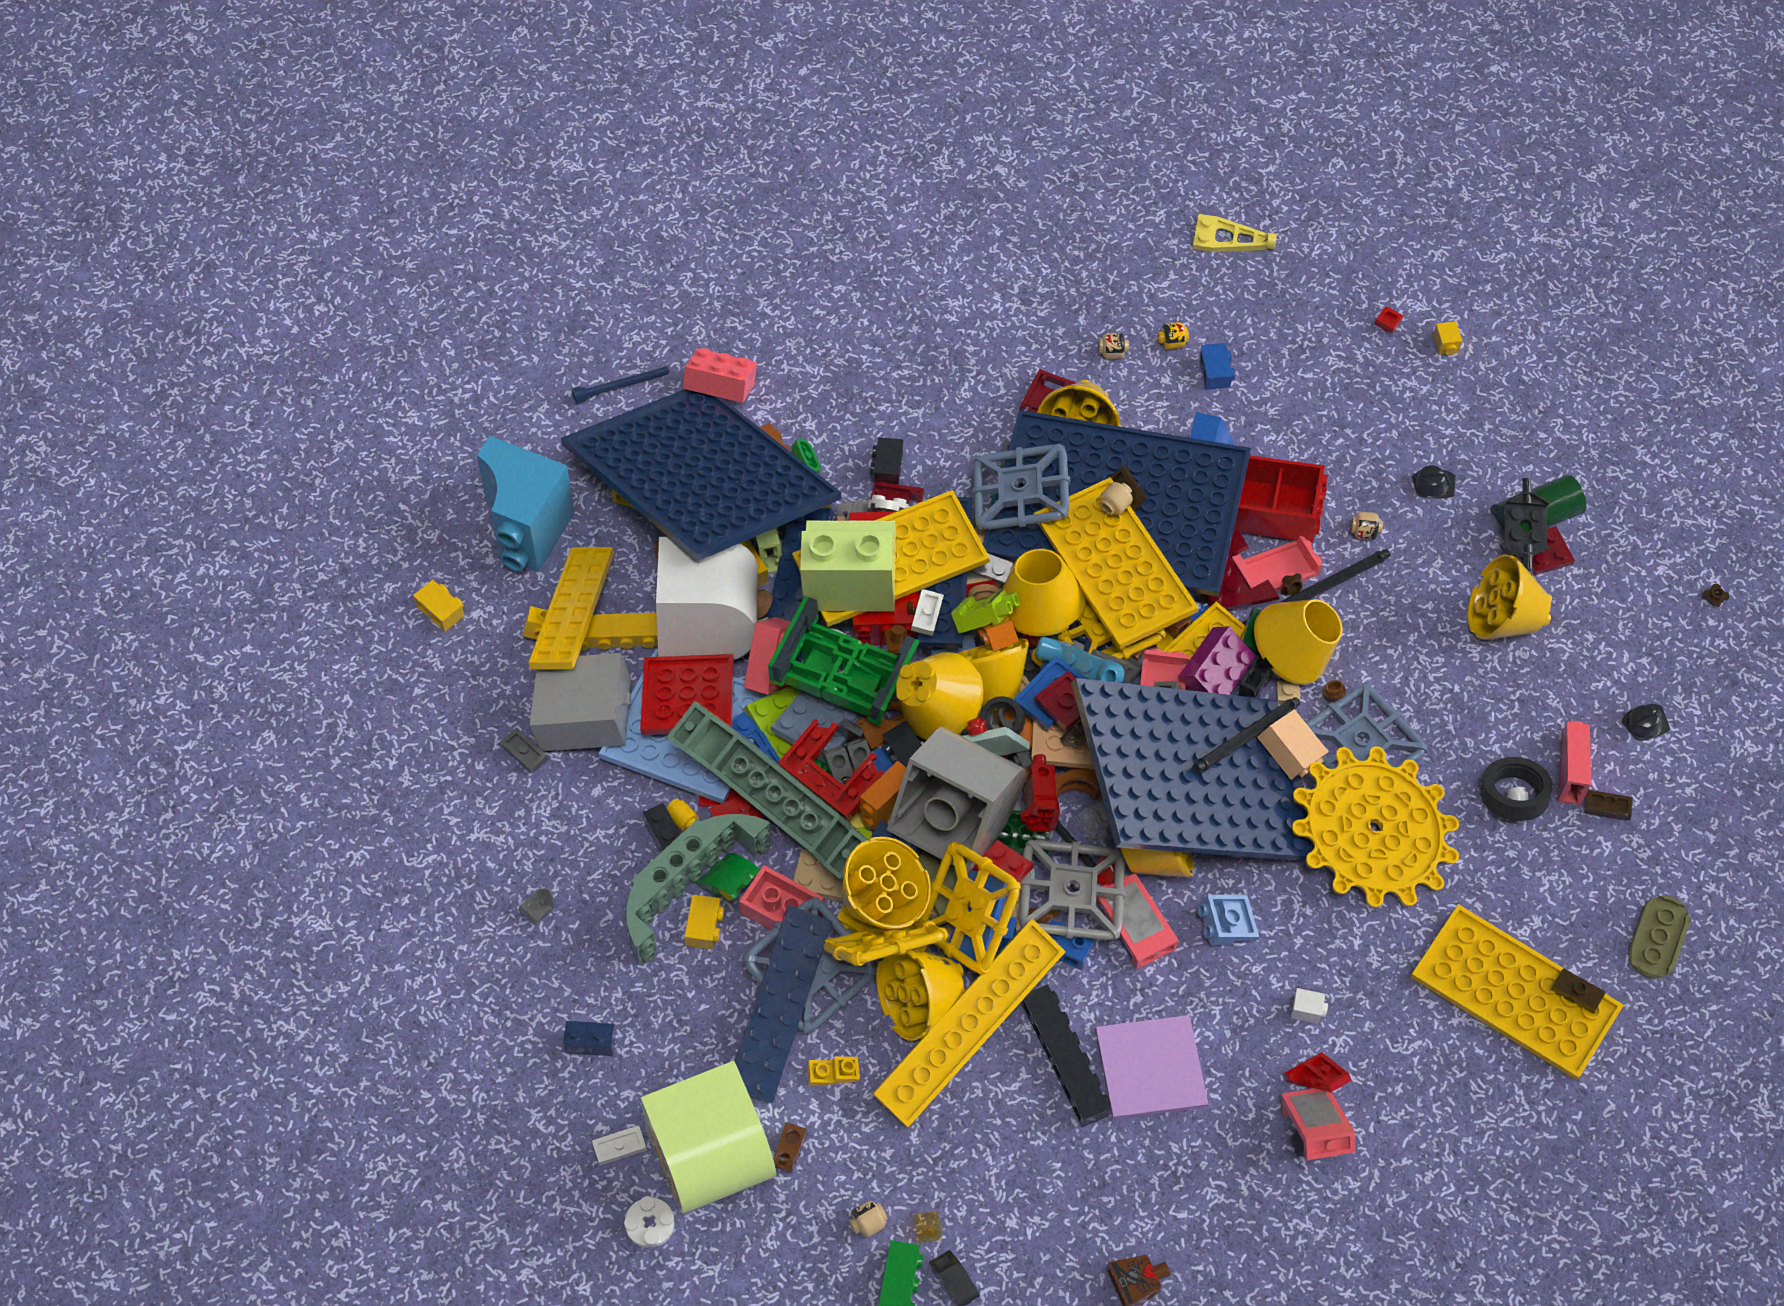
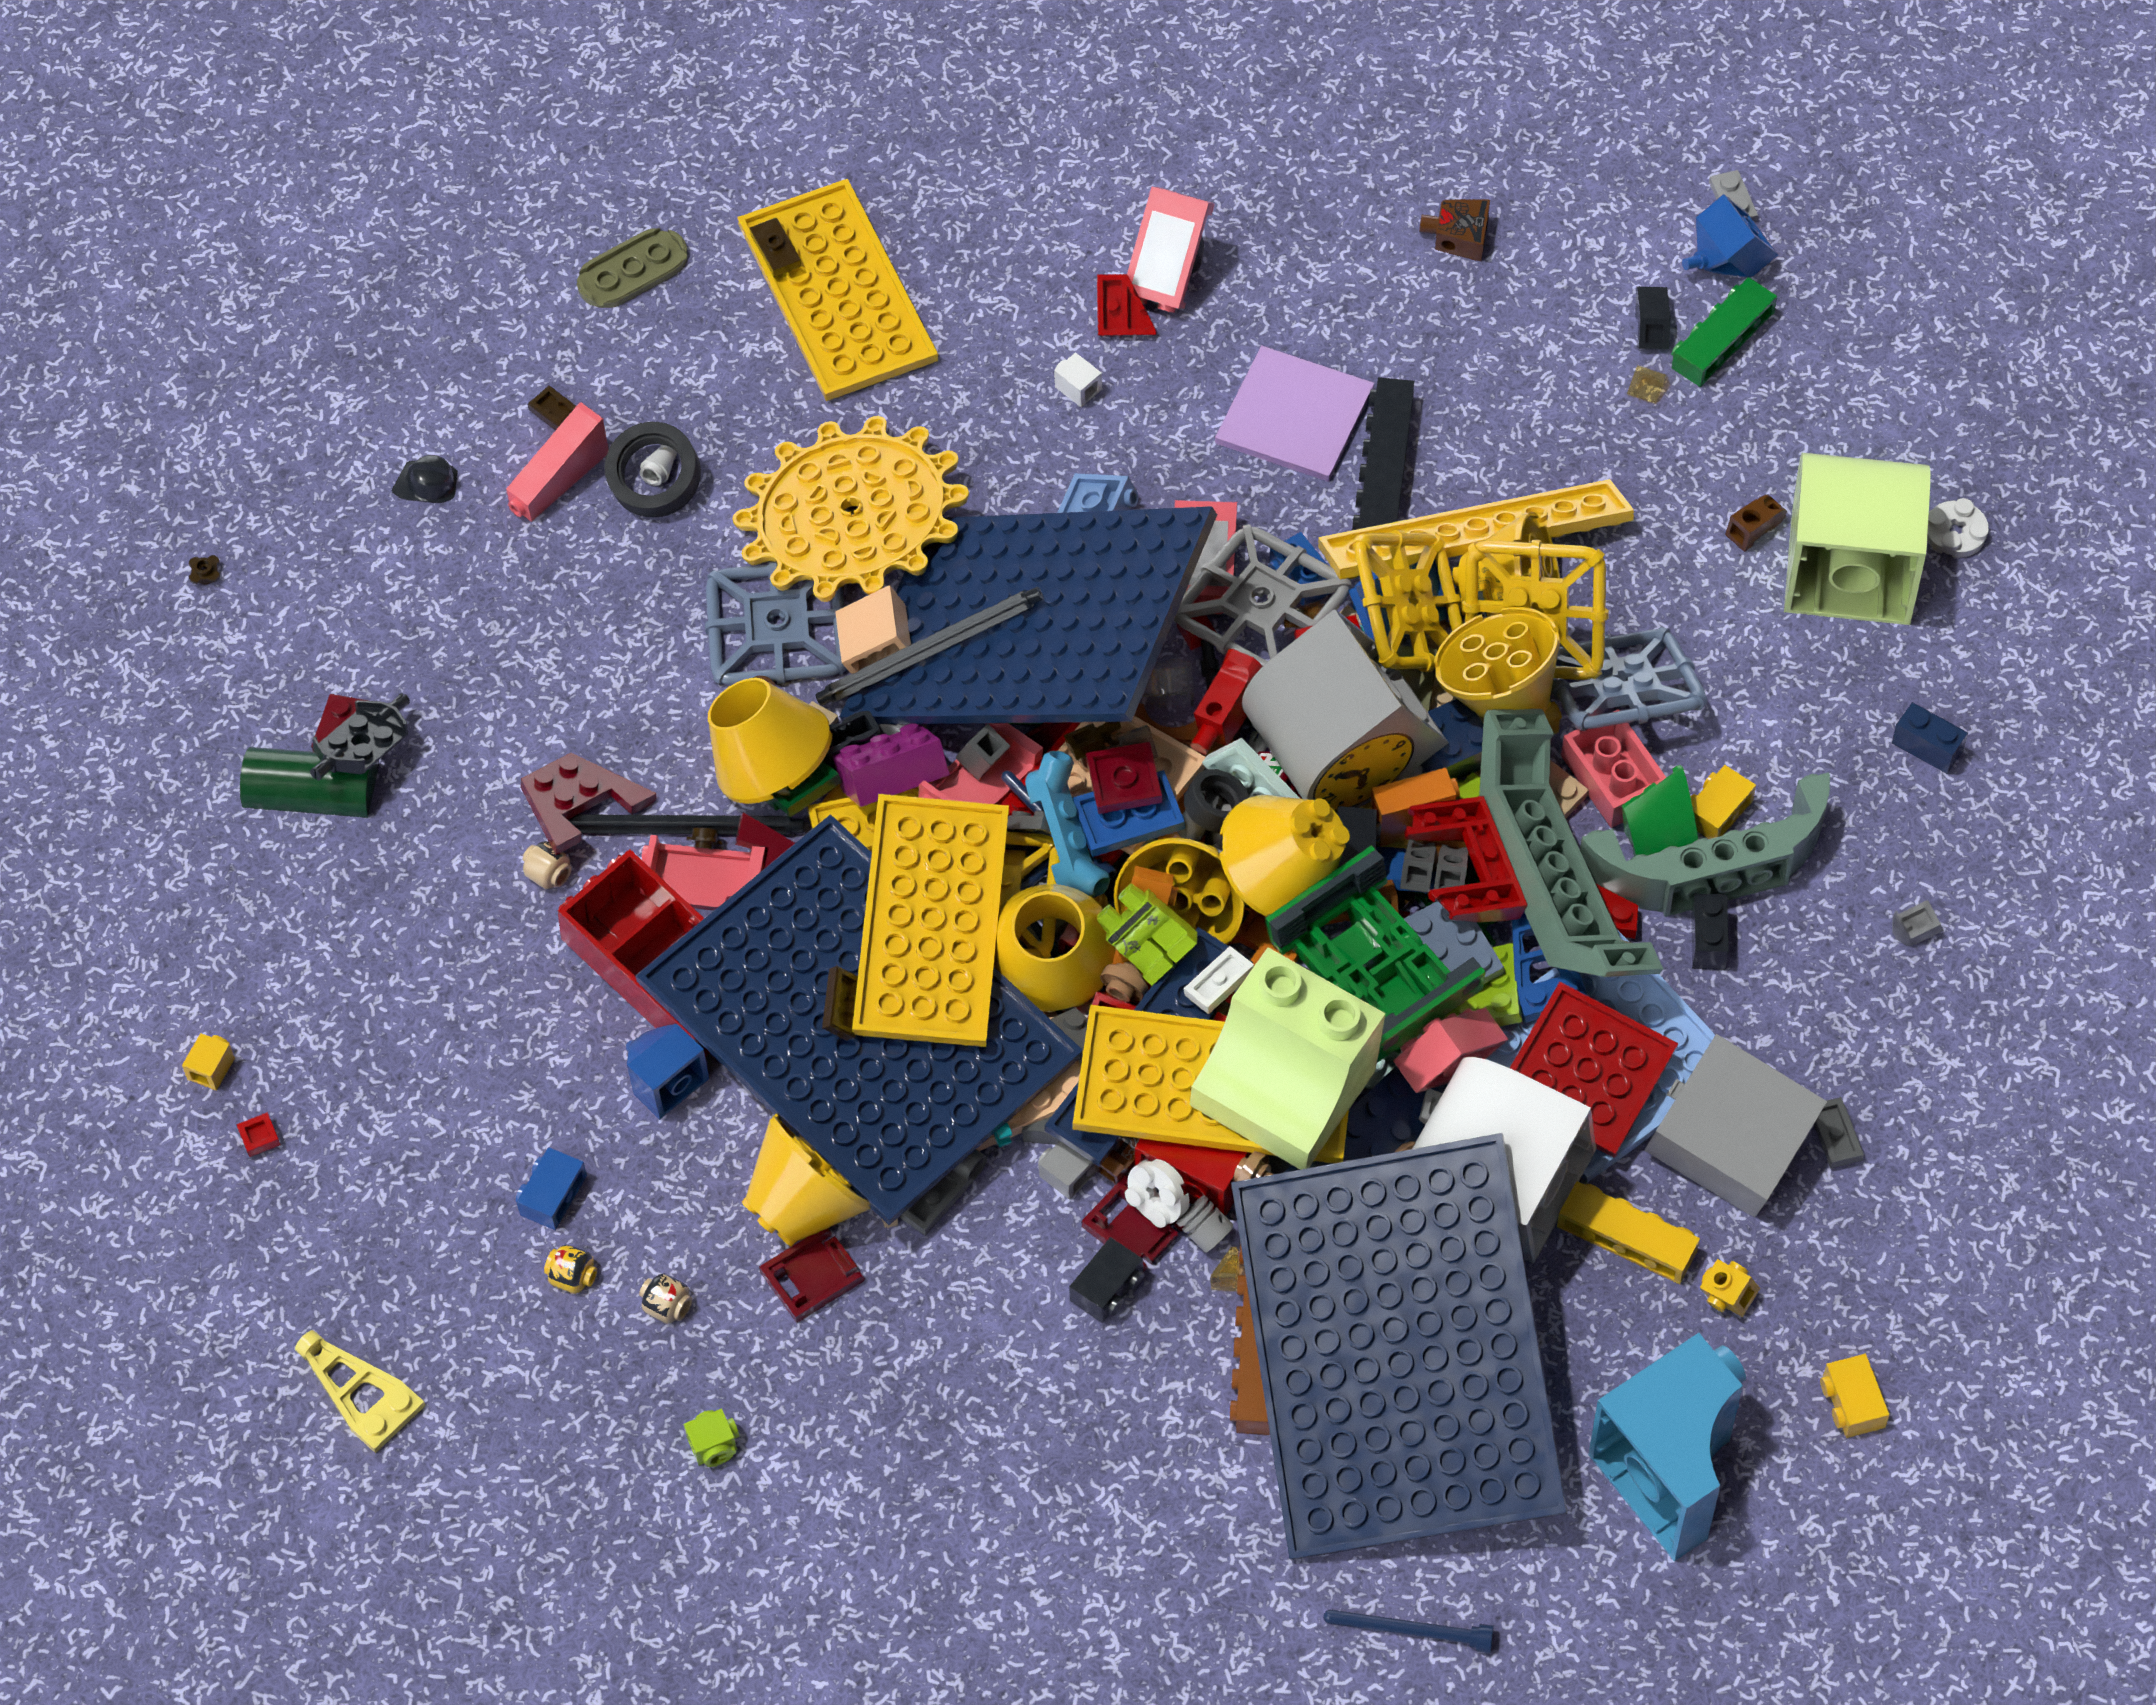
camera: 145 degrees left, 0 degrees up
(571, 608) = (1679, 1261): yellow plate -> none
(619, 1145) = (1951, 616): white plate -> none
(682, 814) = (1673, 943): yellow brick -> none
(719, 375) = (1262, 1537): coral brick -> none
(781, 1001) = (1685, 647): dark blue plate -> none
(803, 450) = (1214, 1354): green plate -> none
(834, 1071) = (1652, 576): yellow slope -> none
(849, 730) = (1411, 901): black tile -> none
(868, 1219) = (1711, 412): tan head -> none
(976, 726) = (1264, 775): red plate -> none
(1030, 493) = (977, 1111): sand blue plate -> none
(1036, 294) = (712, 1437): none -> lime brick
(1116, 498) = (875, 976): tan head -> none
(1392, 571) = (572, 787): none -> wing
(1434, 482) = (405, 886): black piece -> none
(1507, 601) = (480, 657): yellow cone -> none

